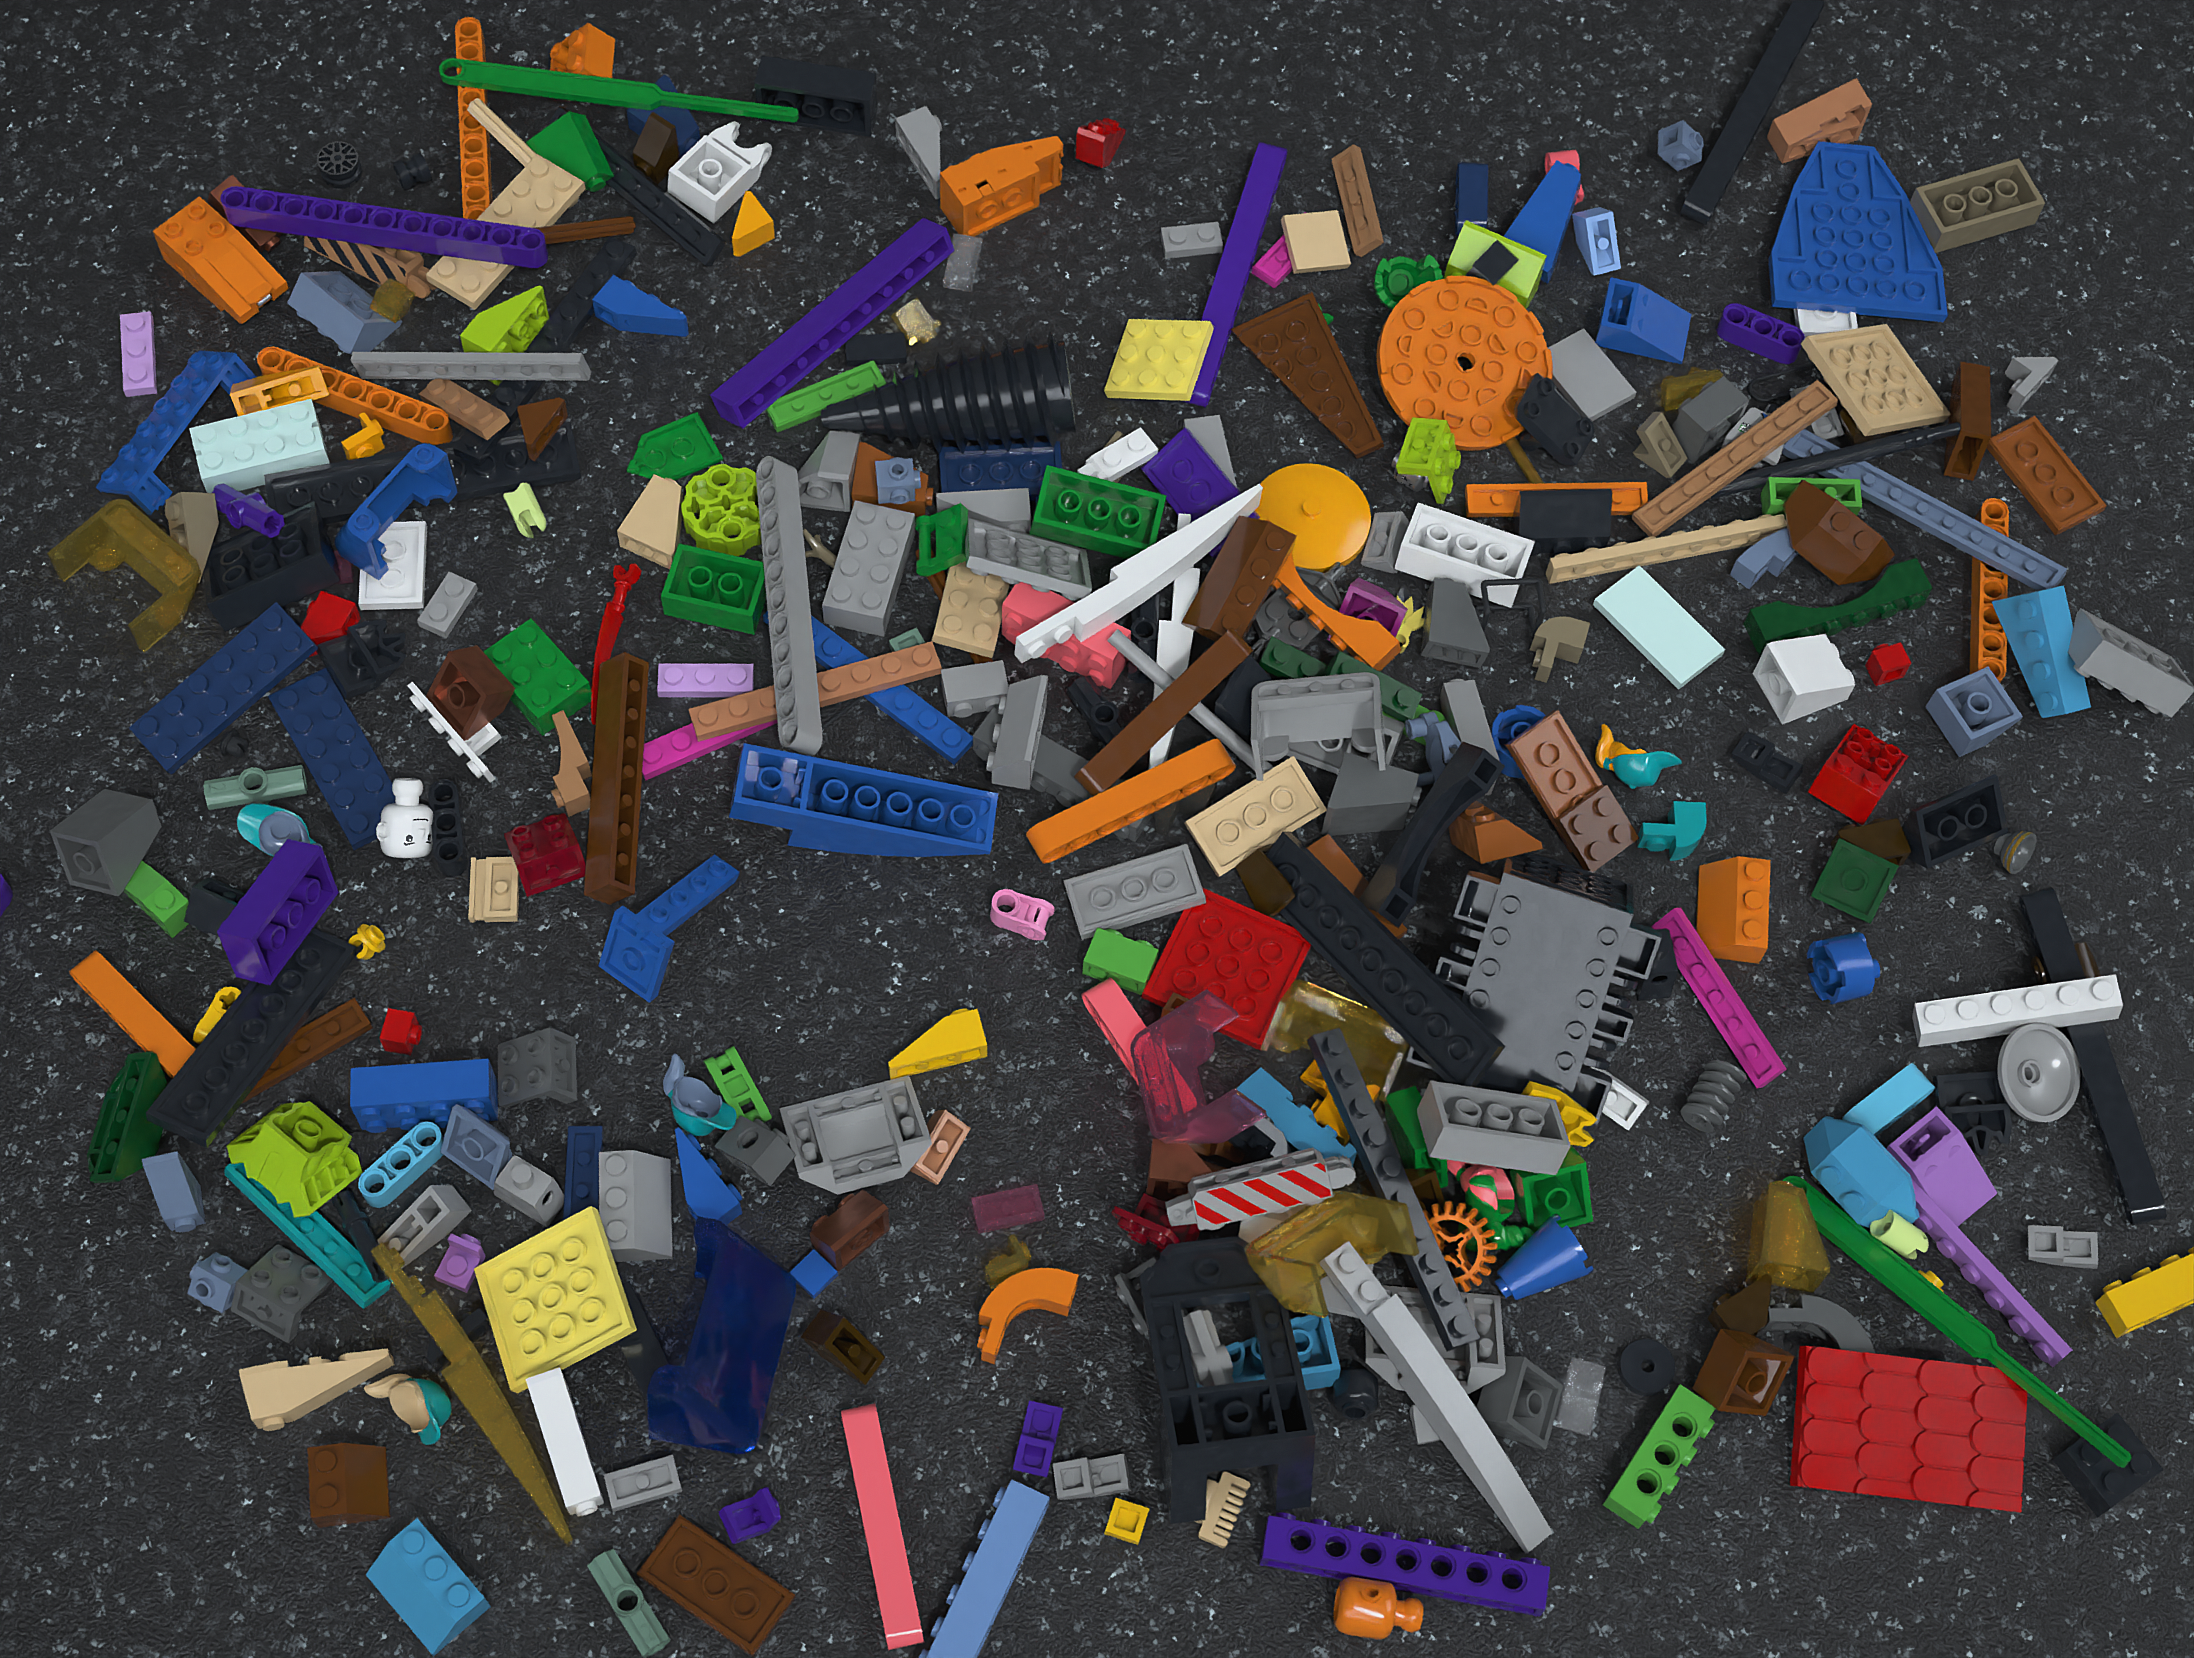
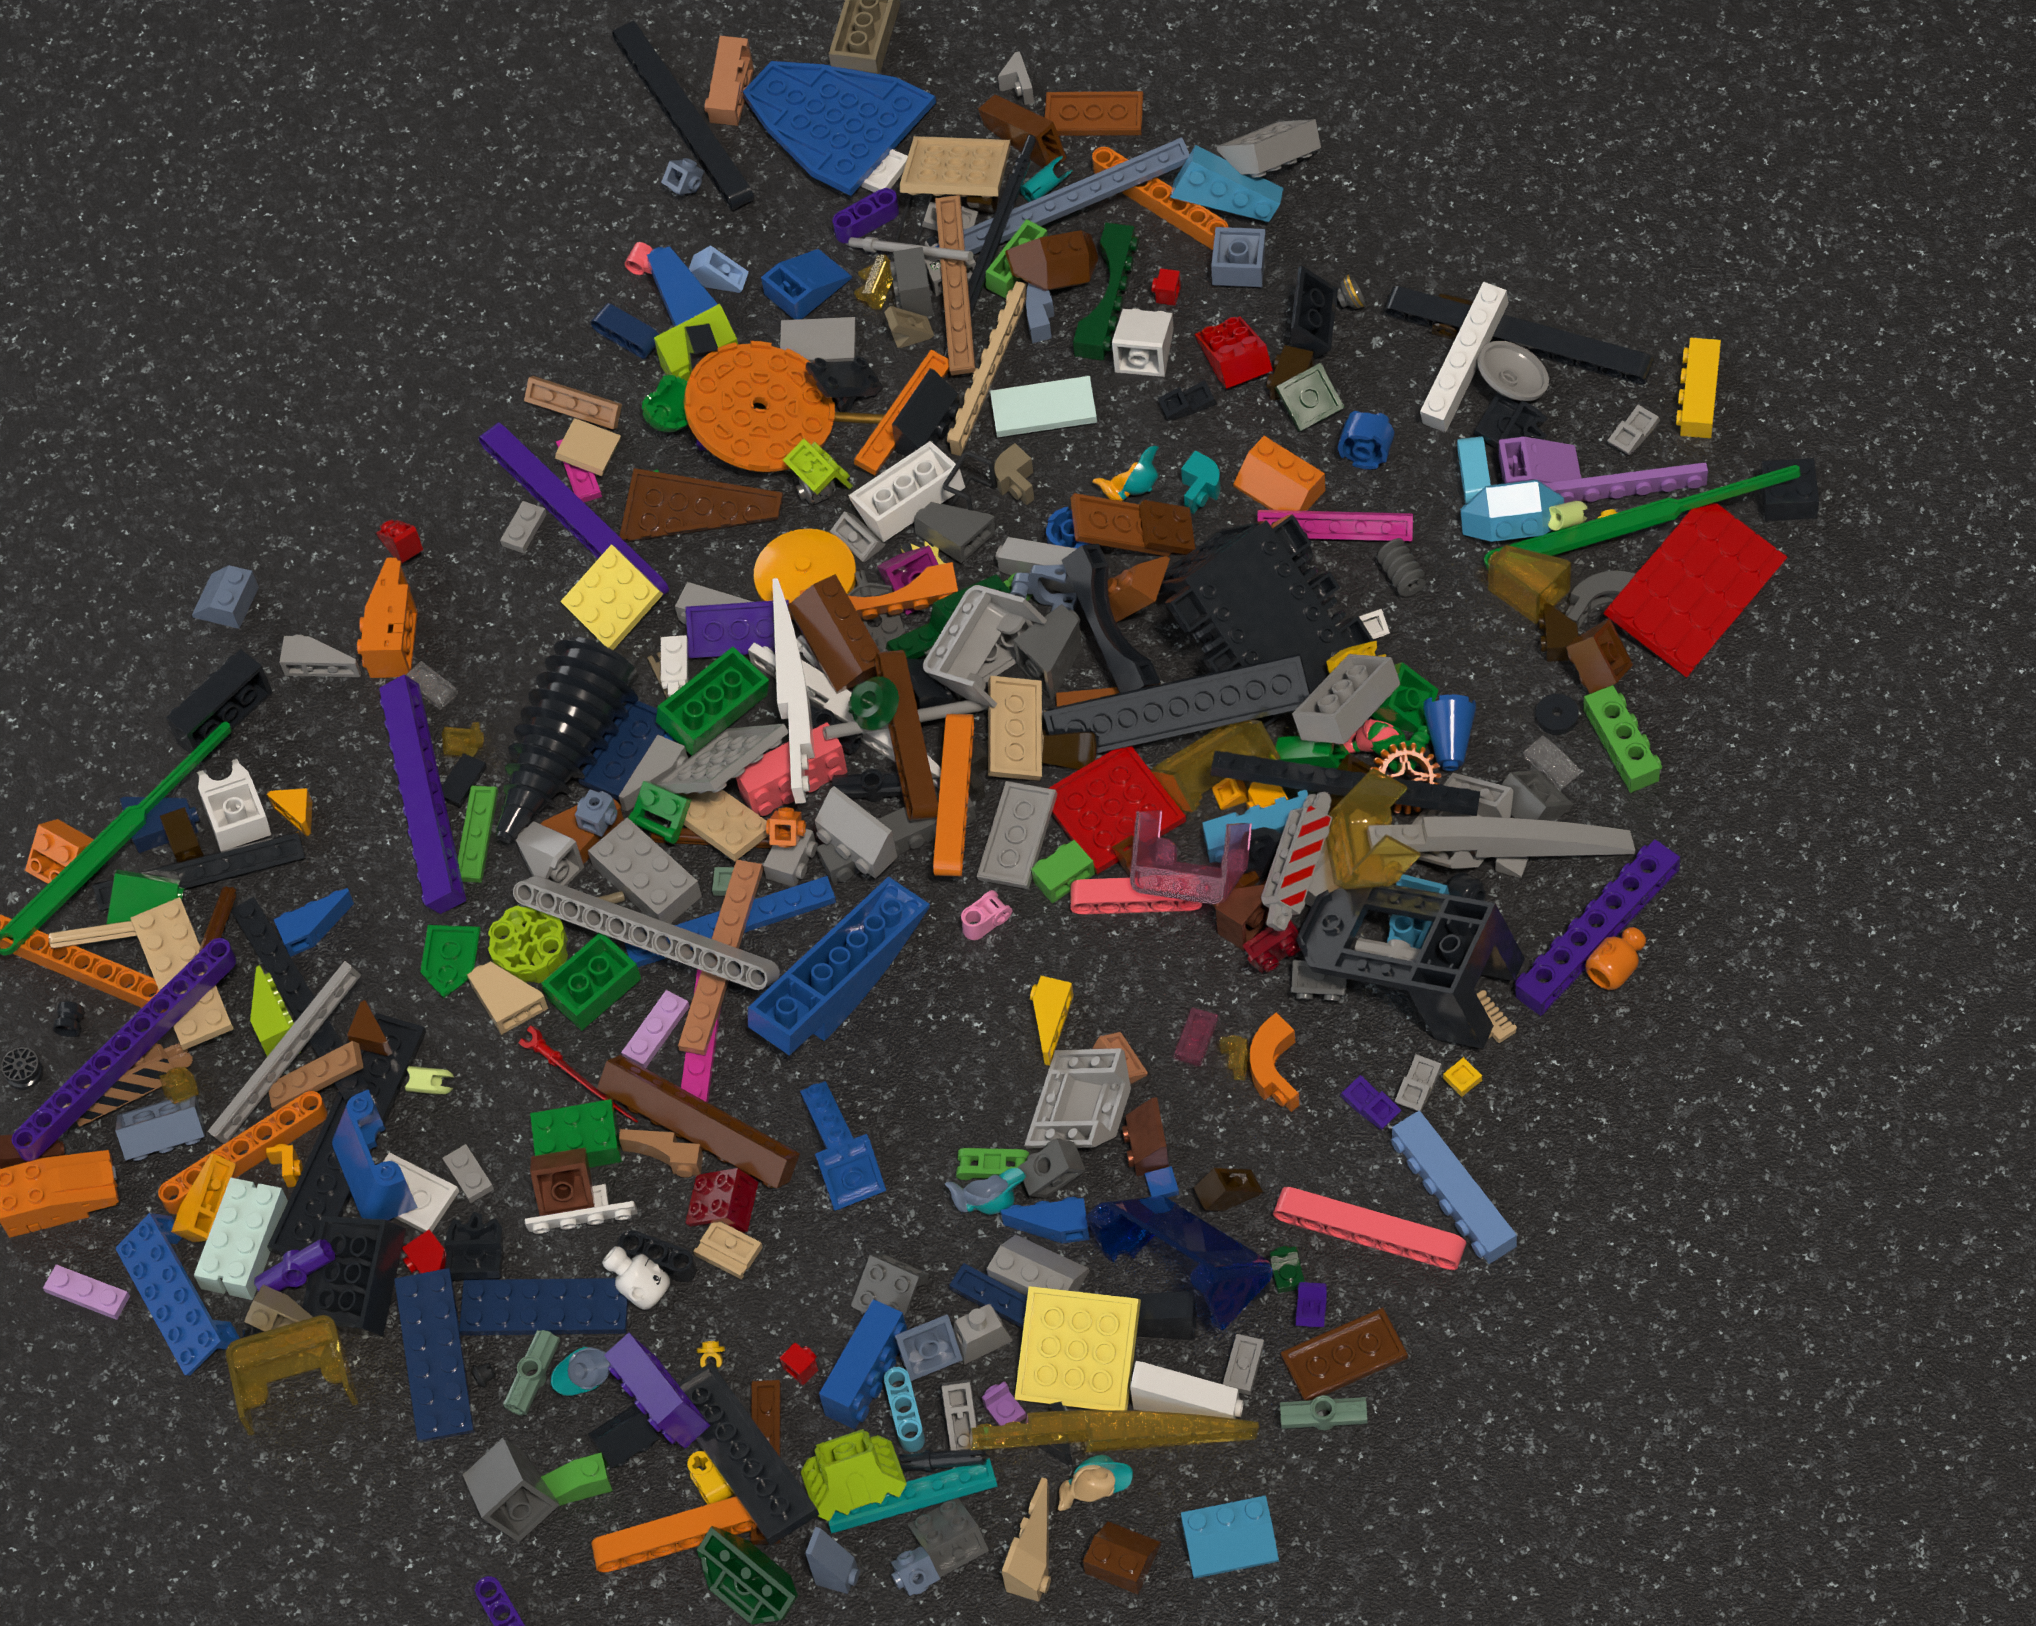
camera: 45 degrees left, 5 degrees down
(783, 1465) = (1286, 1268): none -> dark green bracket
(944, 40) = (227, 596): none -> sand blue slope
(986, 663) = (782, 835): none -> orange brick
(1172, 658) = (874, 703): none -> dark green piece
(1731, 360) = (872, 244): none -> light grey bar
(1924, 473) = (1042, 182): none -> teal piece

